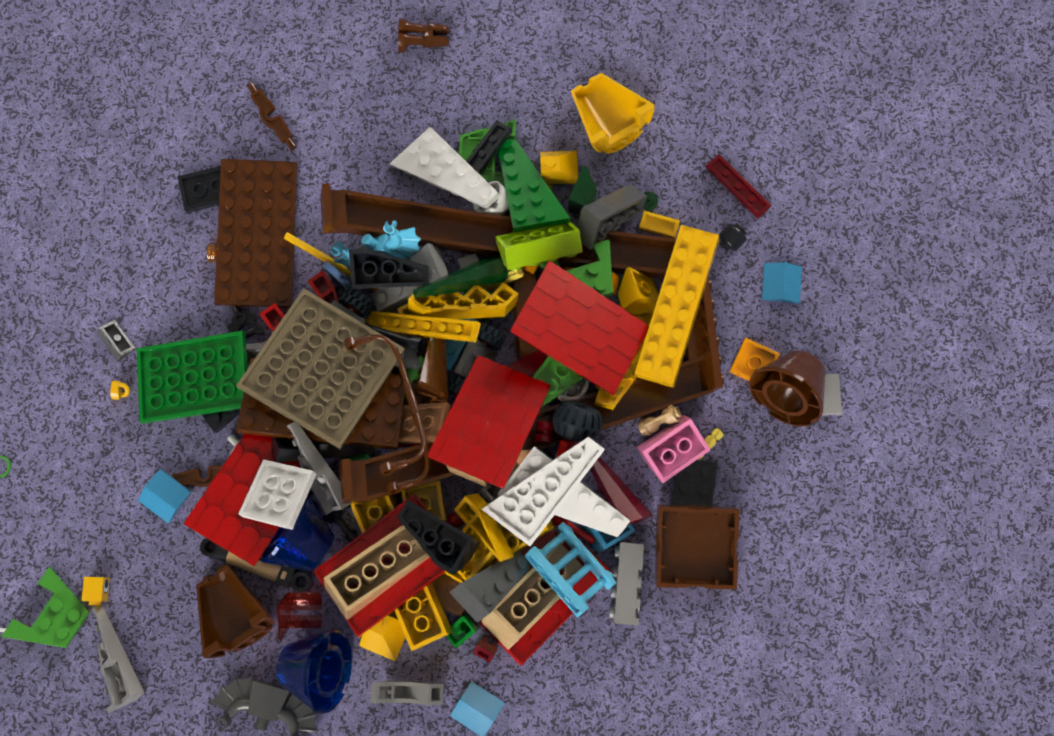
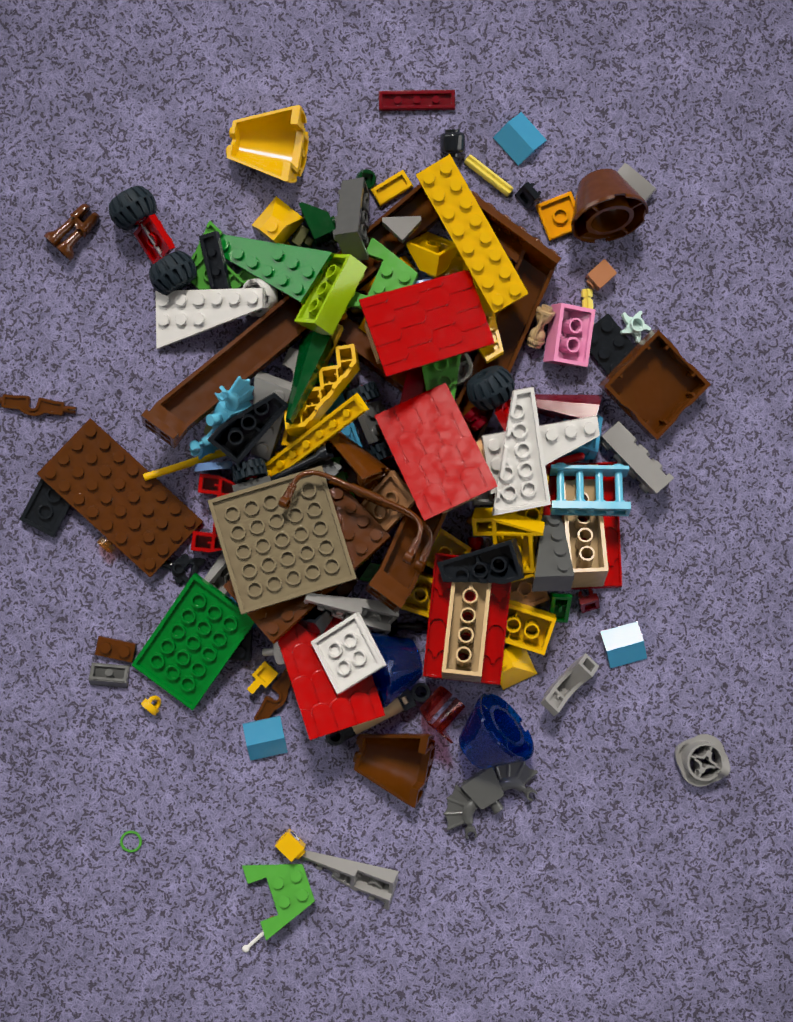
camera: 50 degrees left, 10 degrees up
(139, 327) = (115, 649): none -> reddish brown plate
(211, 452) = (263, 675): none -> yellow plate
(475, 62) = (136, 209): none -> black plate
(563, 191) = (301, 236): none -> olive tile
(636, 253) = (401, 226): none -> light grey slope
(726, 491) = (634, 325): none -> light aqua animal
(734, 284) = (488, 175): none -> light yellow axle
(739, 431) = (600, 275): none -> nougat brick
(746, 325) = (528, 195): none -> black tile

